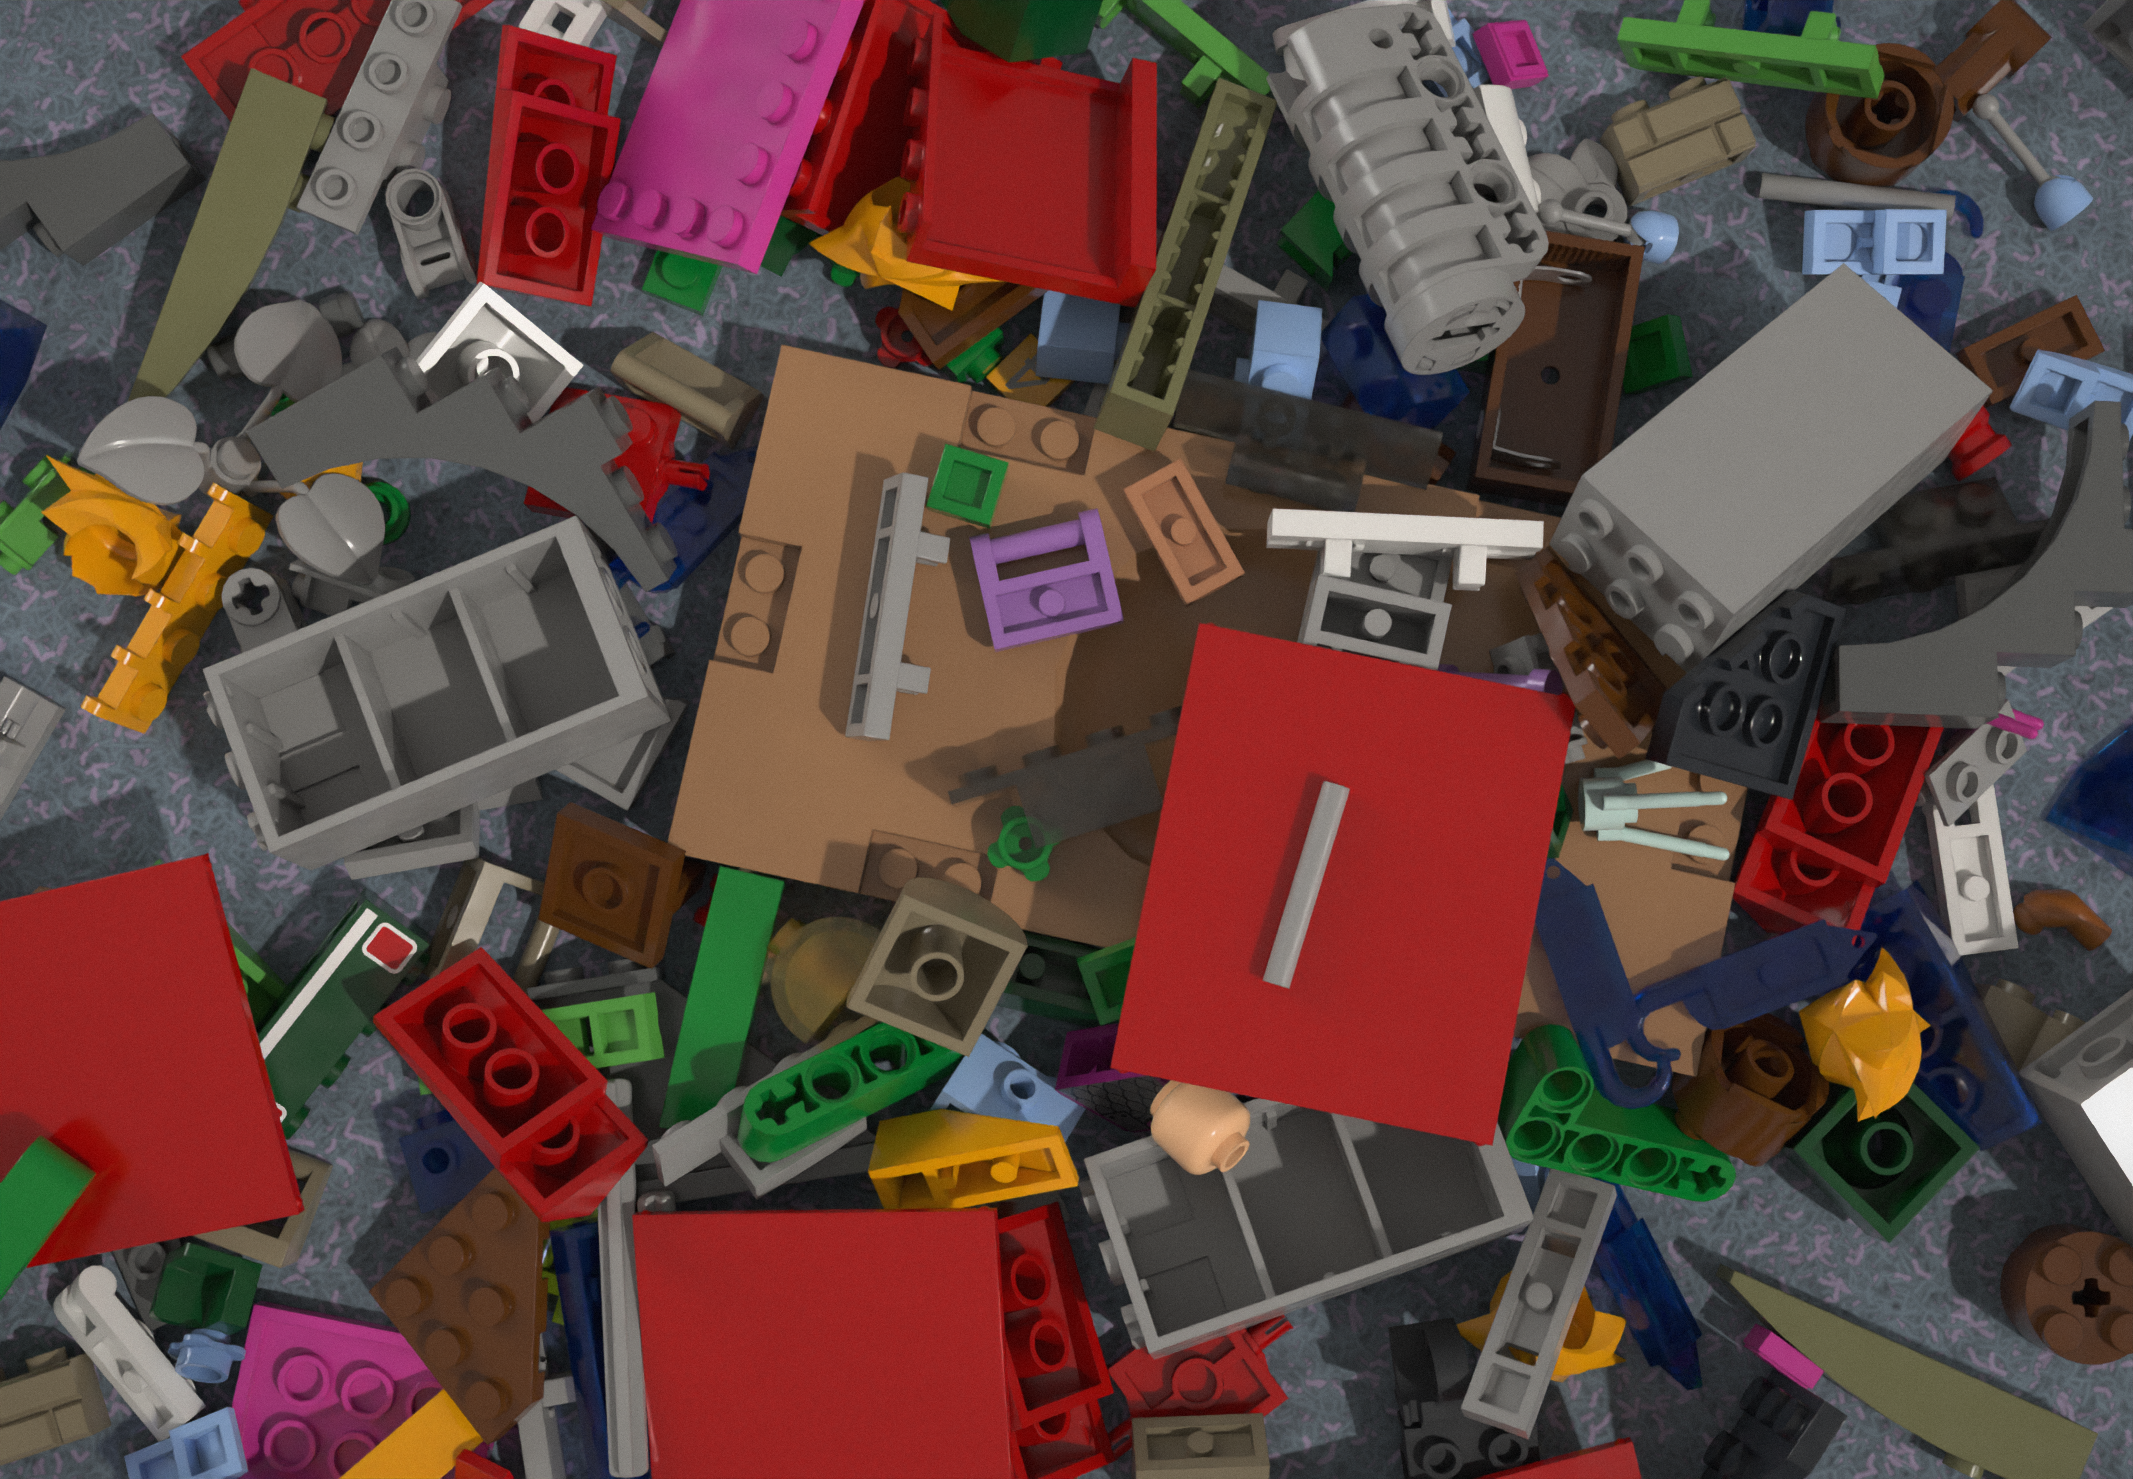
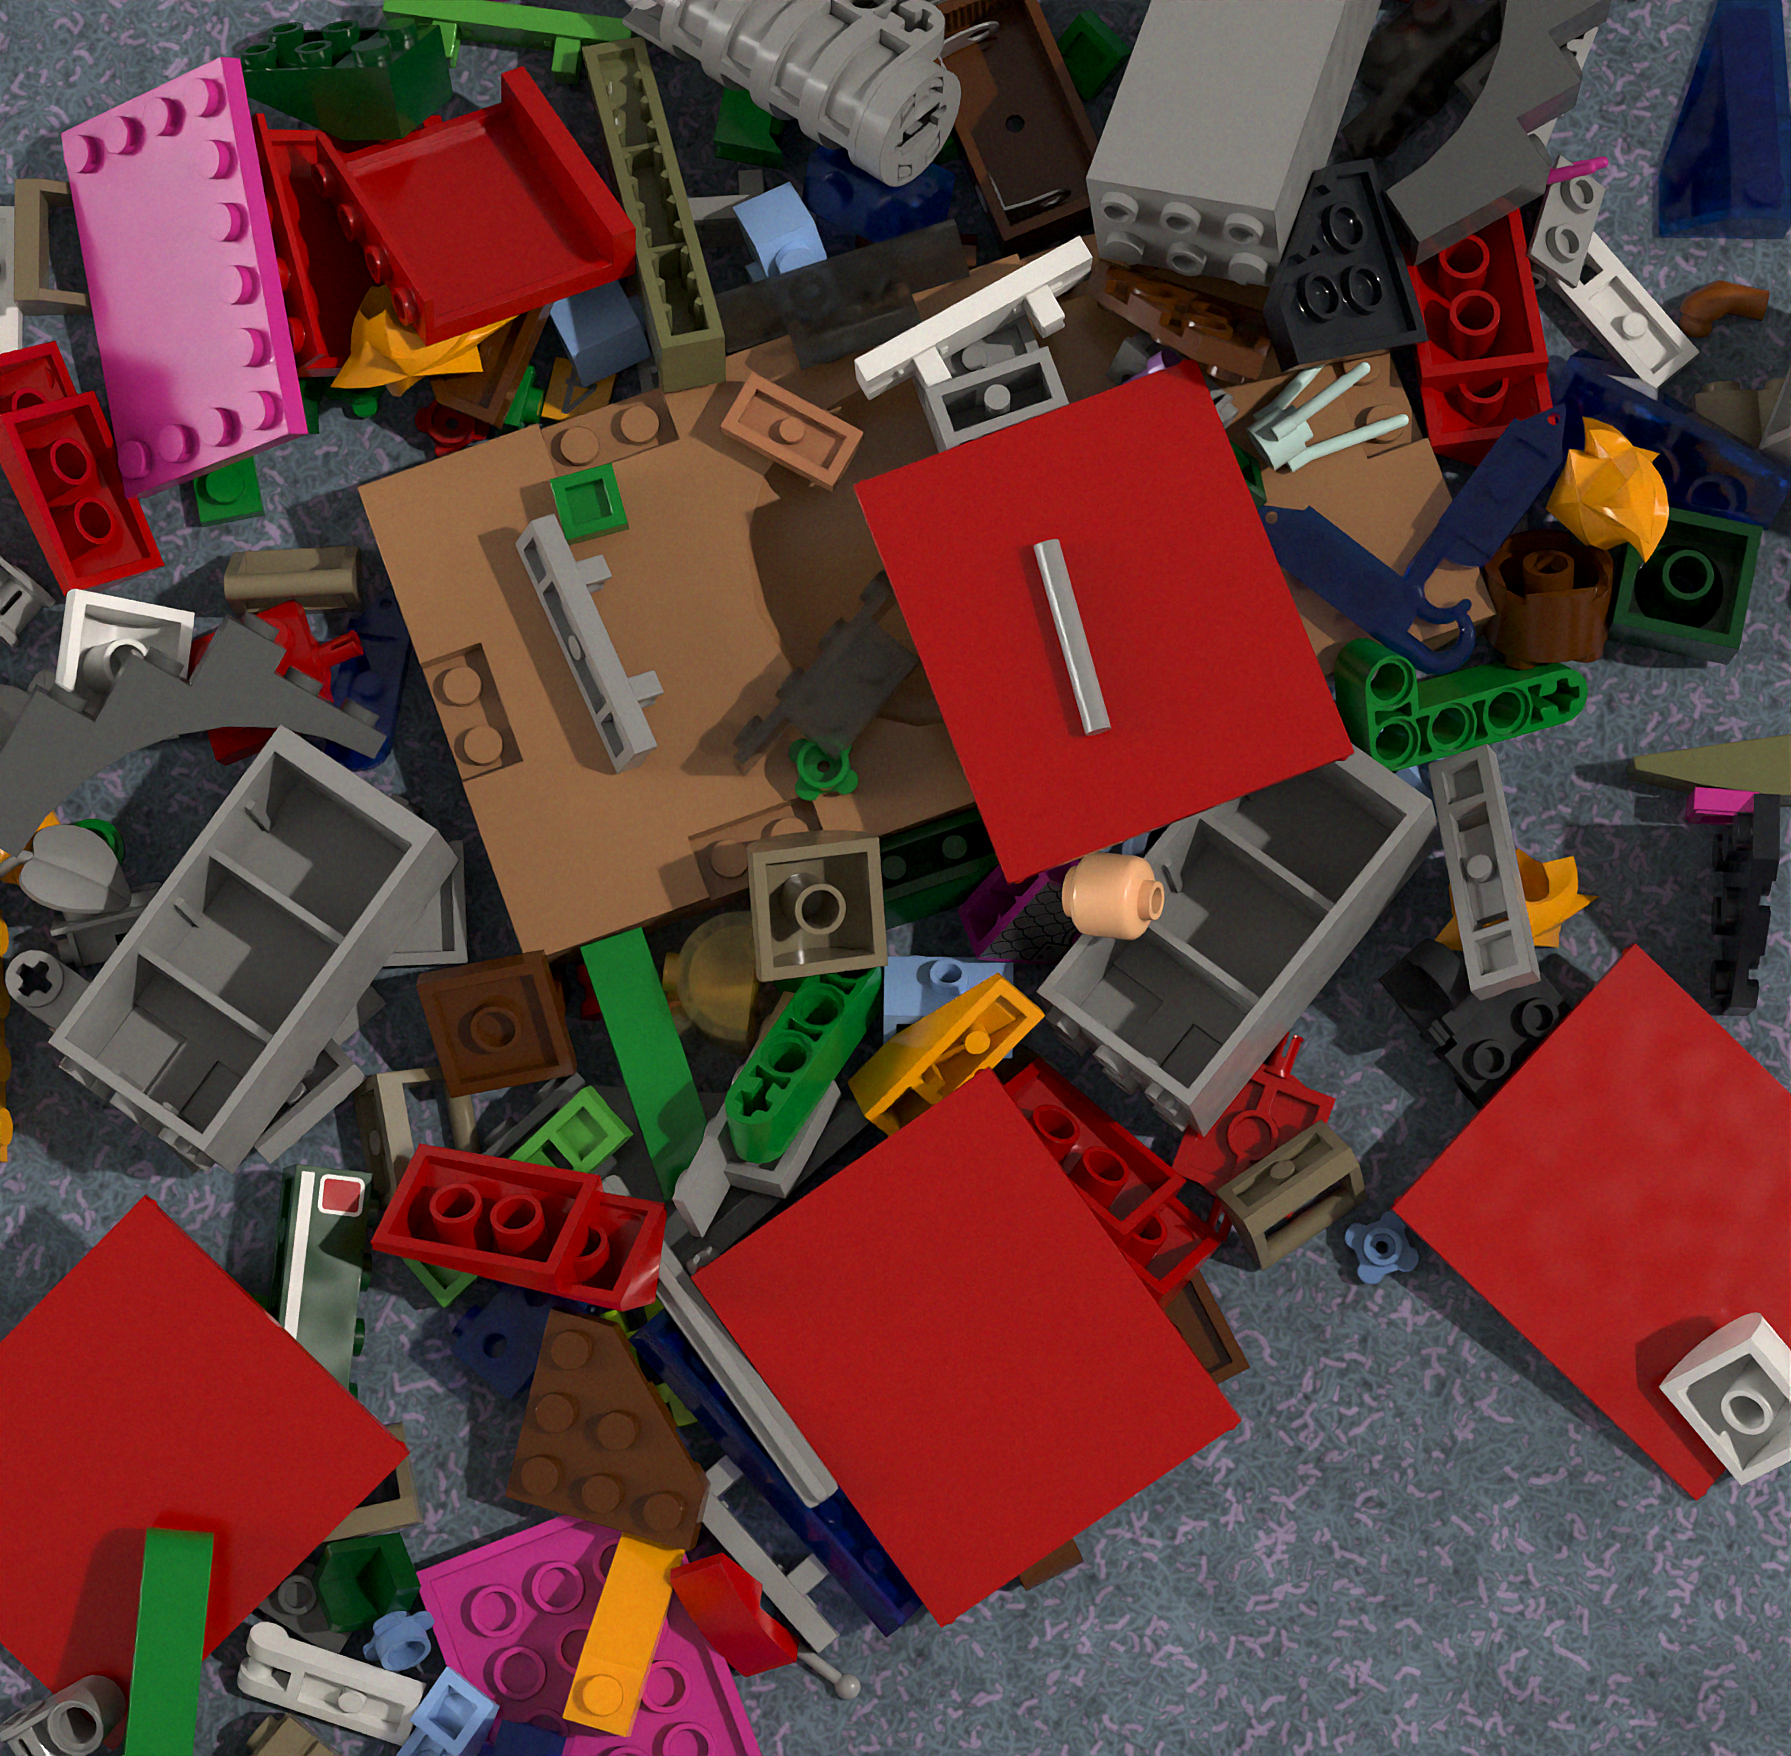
camera: 30 degrees left, 5 degrees down
(1053, 600) = (718, 555): medium lavender plate -> none
(1106, 978) = (963, 832): green plate -> none
(1648, 1294) = (1577, 825): clear blue plate -> none

